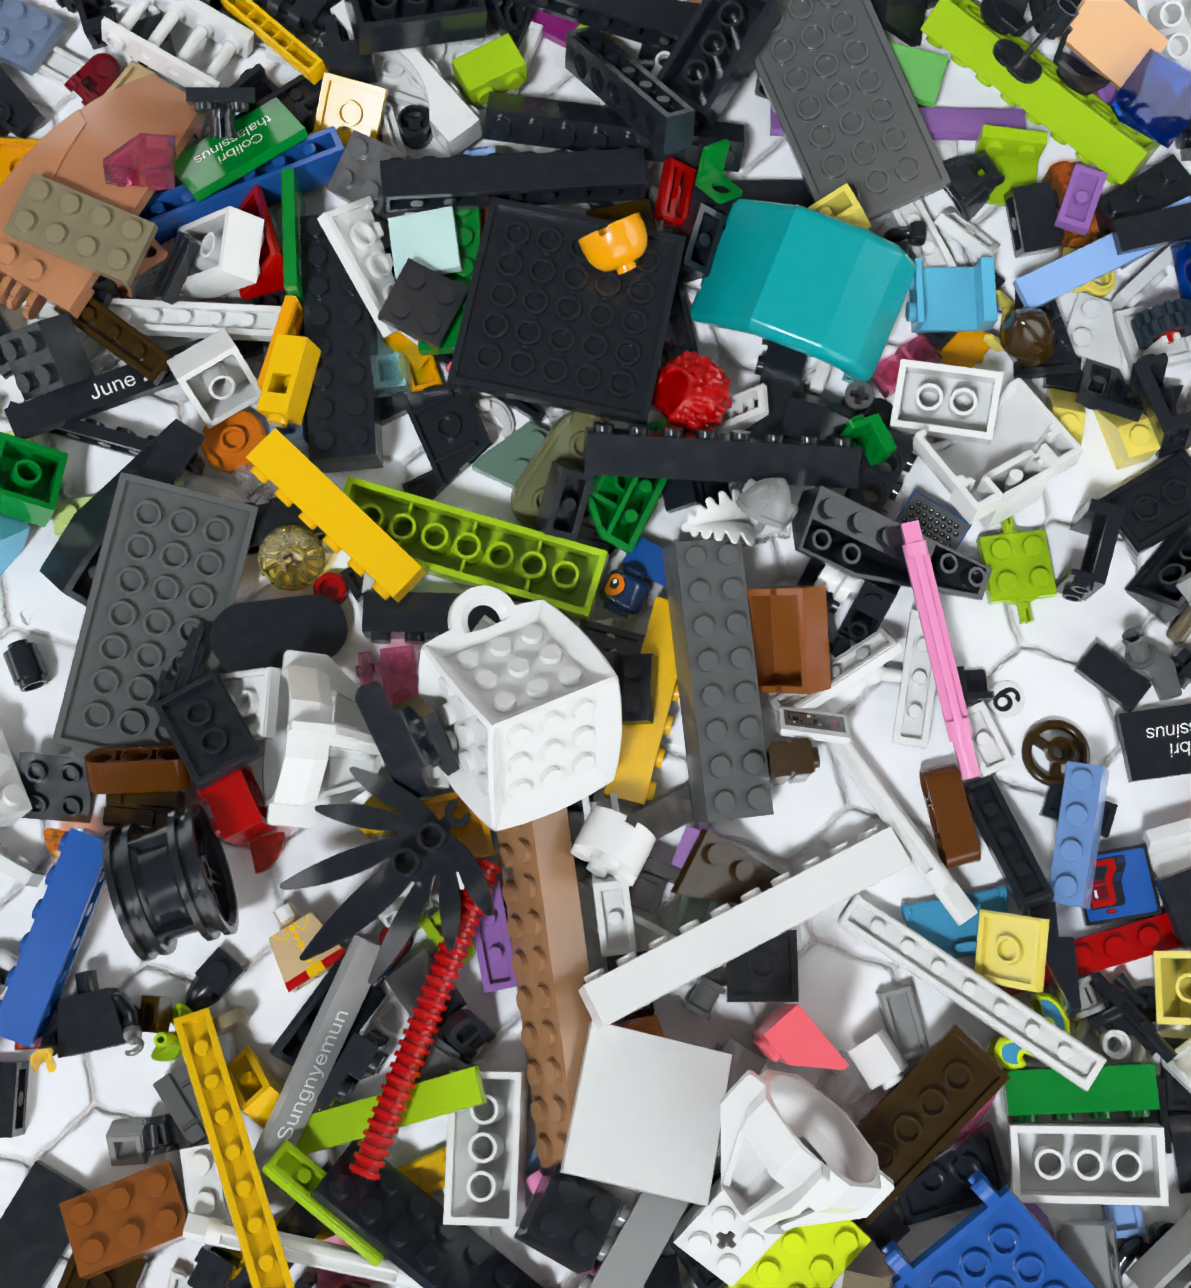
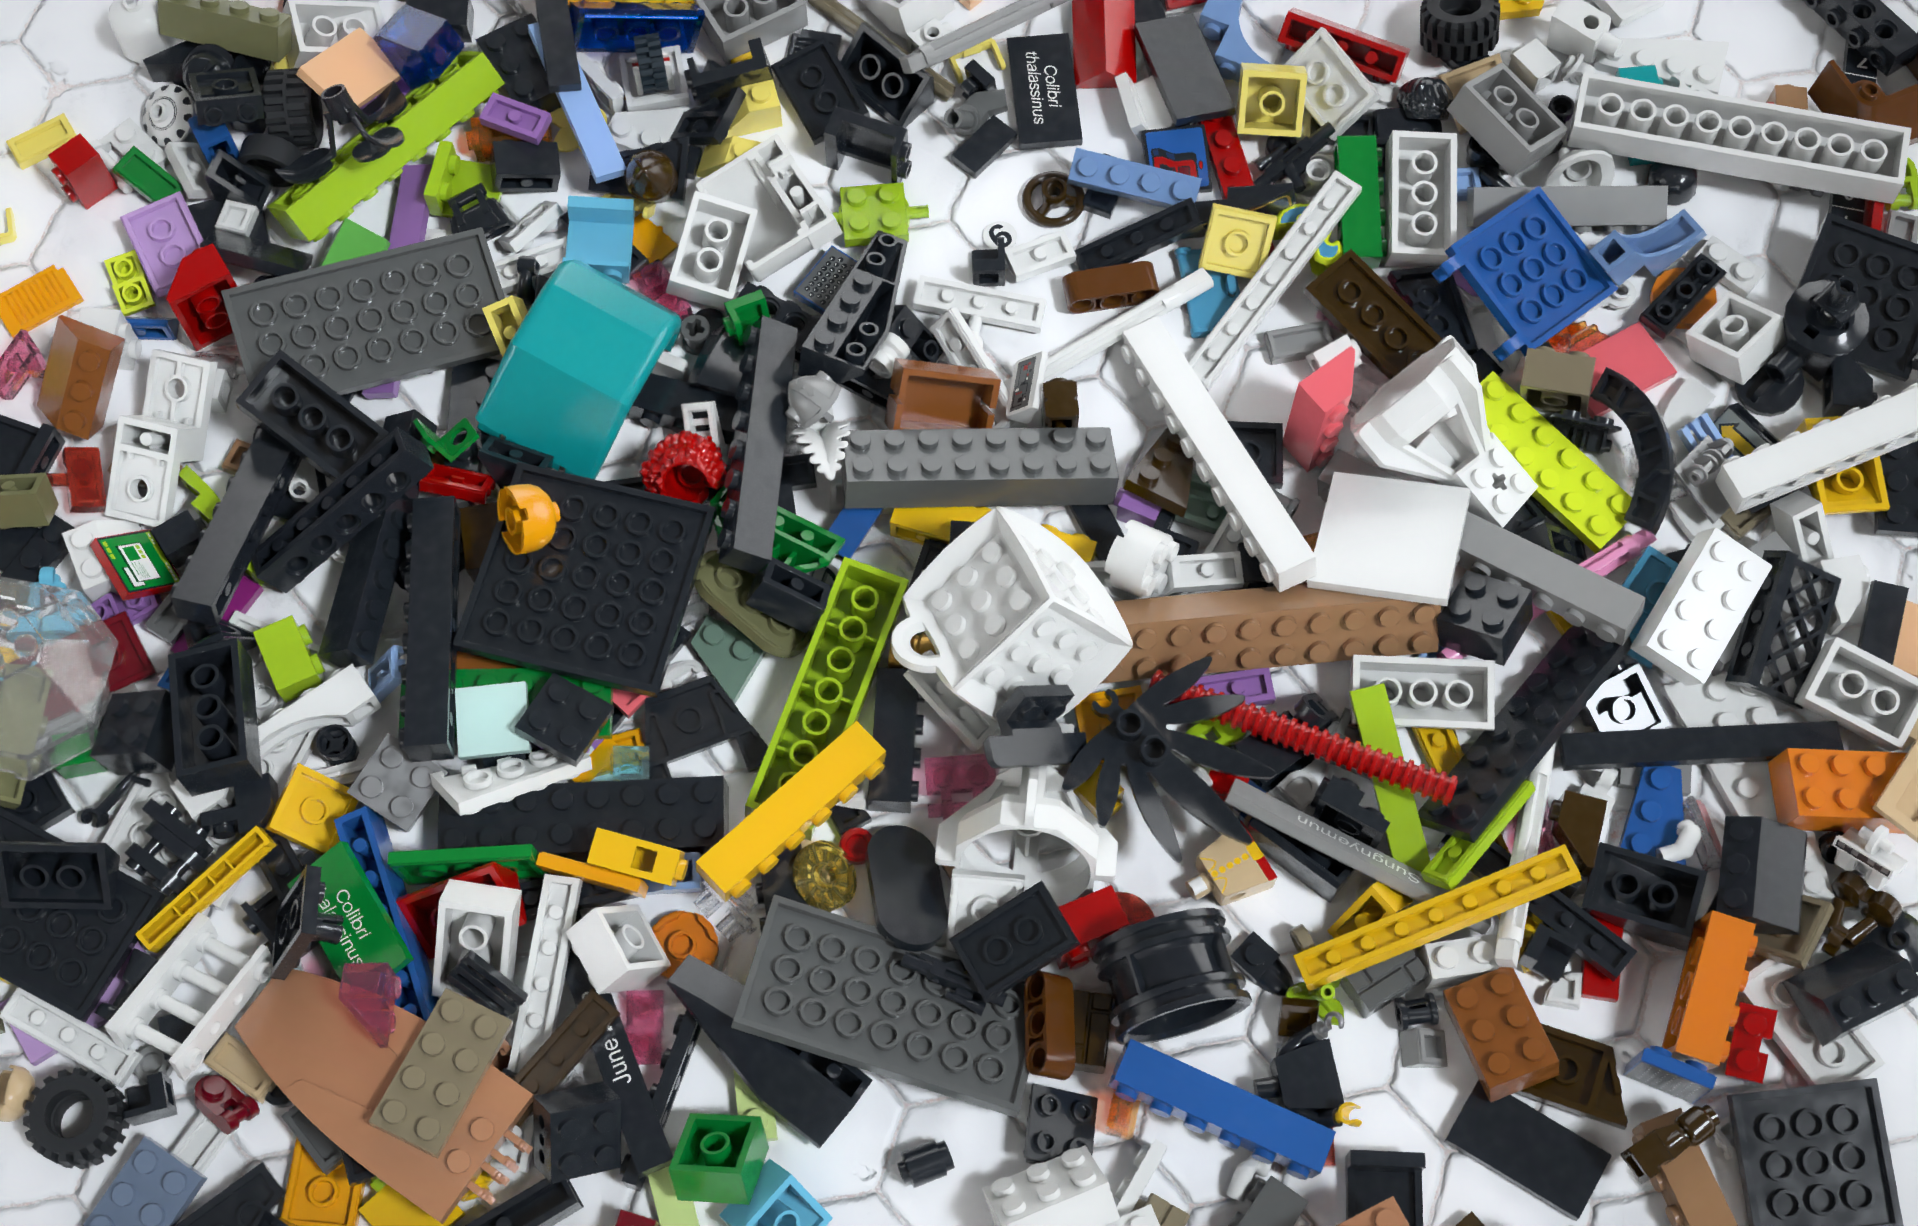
camera: 90 degrees left, 10 degrees down
(156, 413) = (645, 1024): none -> clear pink slope
(624, 592) = (881, 551): dark blue head -> none
(939, 648) = (957, 271): bright pink piece -> none

